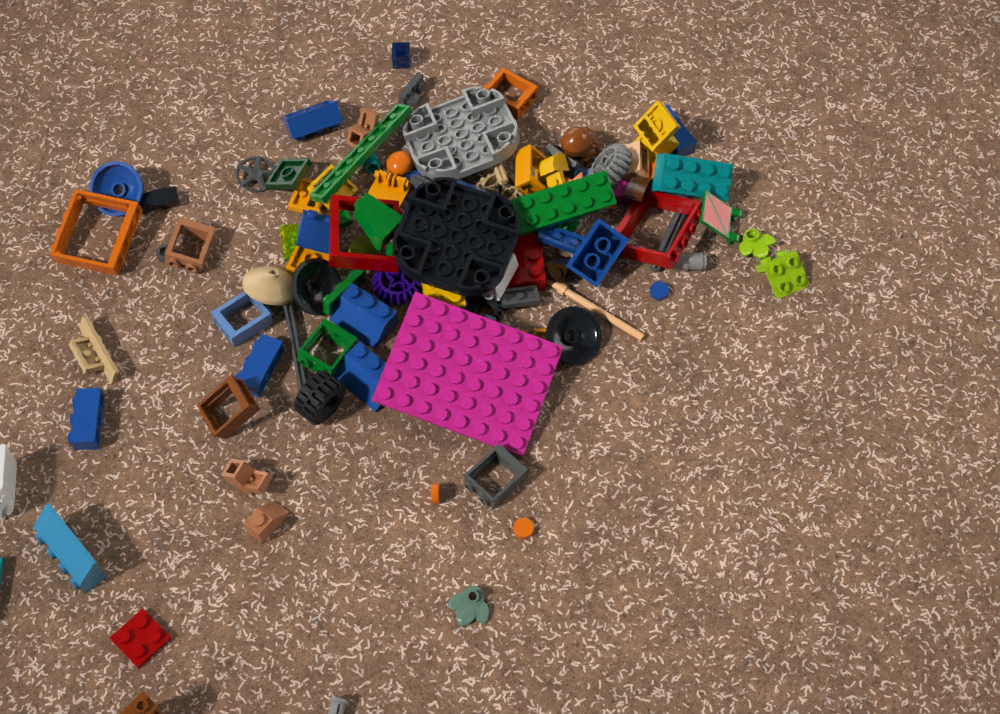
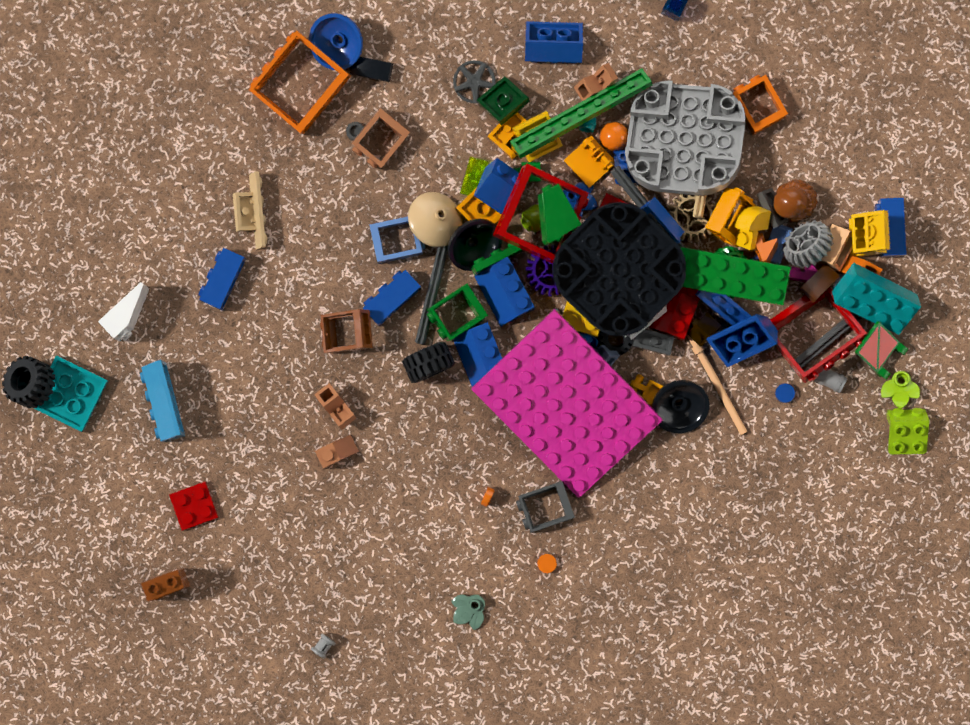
camera: 30 degrees right, 25 degrees up
(409, 94) = (659, 60): dark grey hinge -> none

